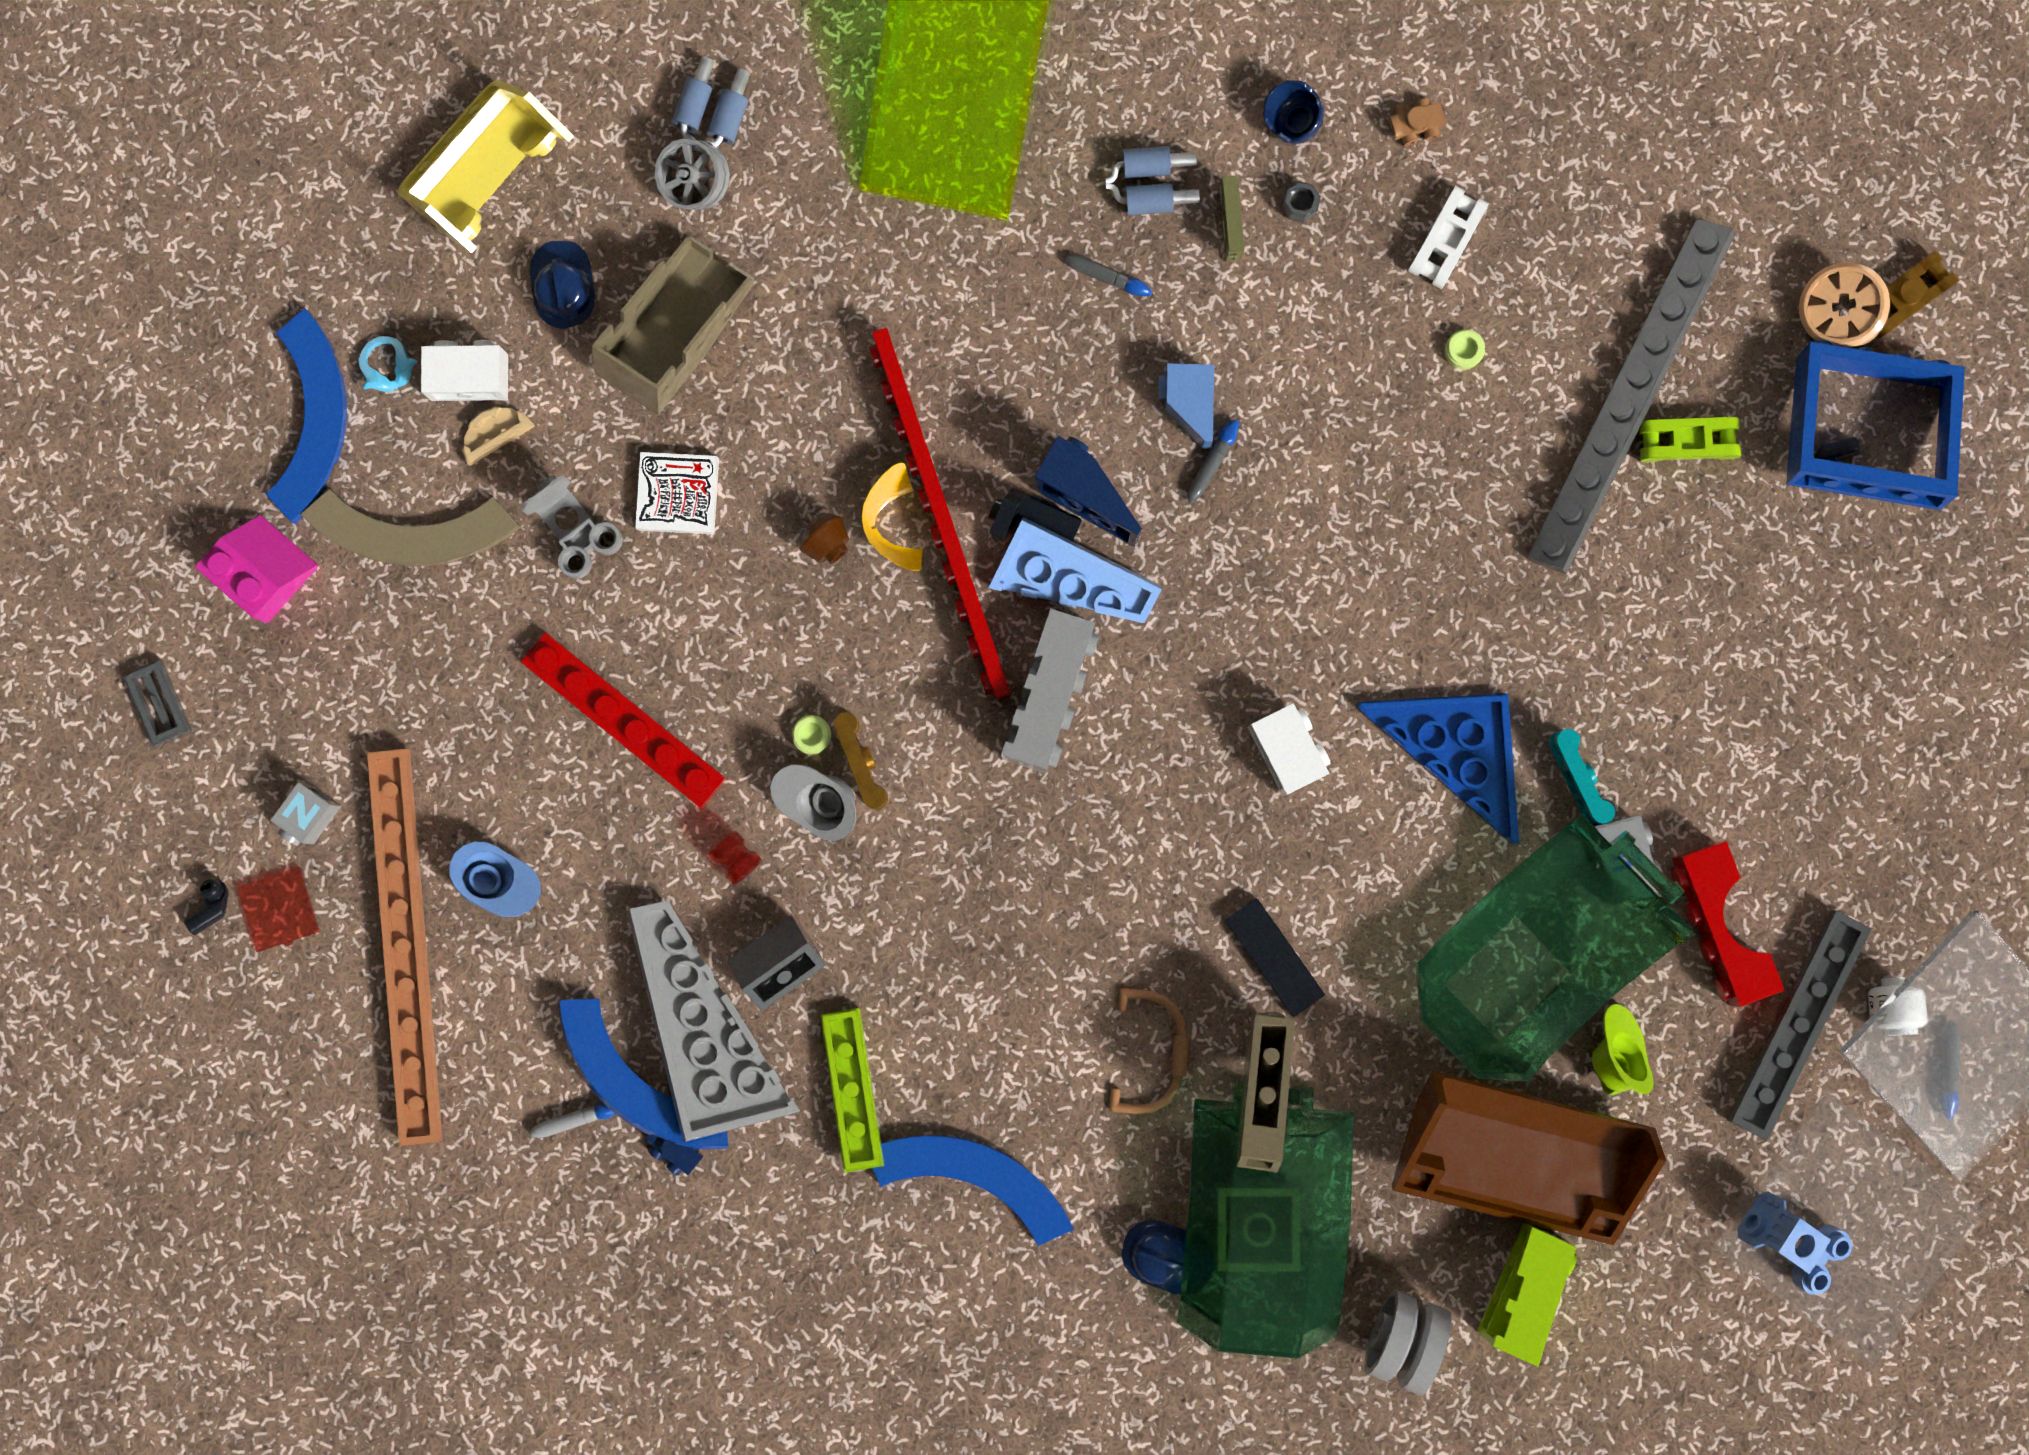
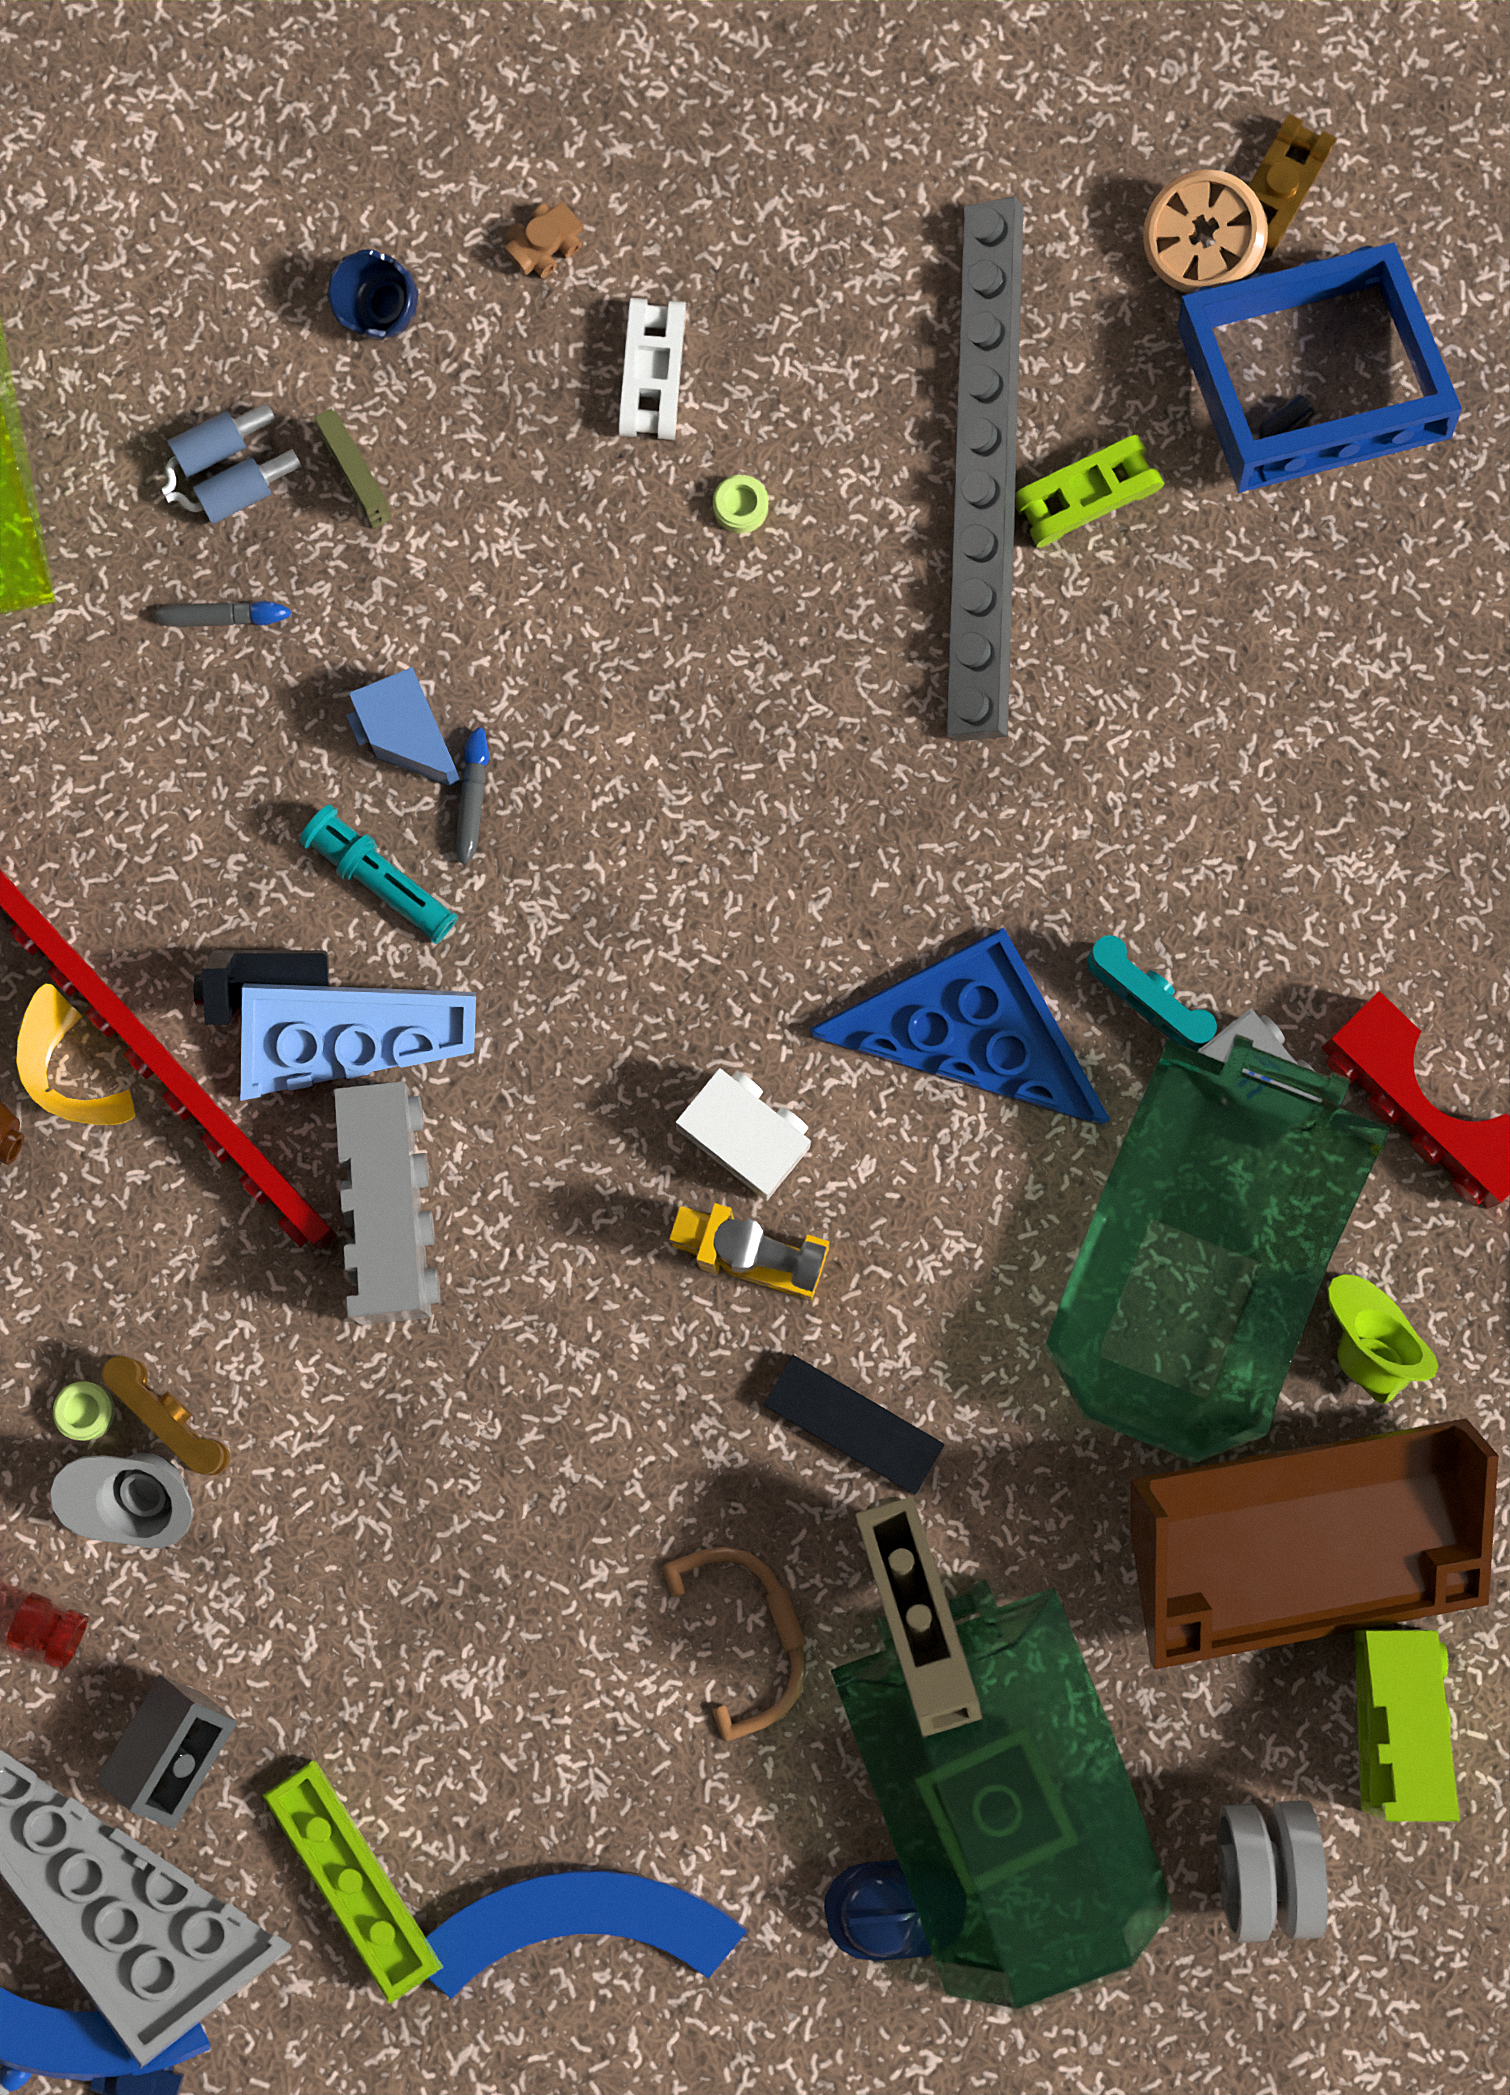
camera: 30 degrees left, 5 degrees down
(1080, 485) = (295, 905): dark blue slope -> none
(1125, 469) = (357, 858): none -> teal pin
(1259, 825) = (747, 1252): none -> hips
(1300, 202) = (436, 407): dark grey tile -> none

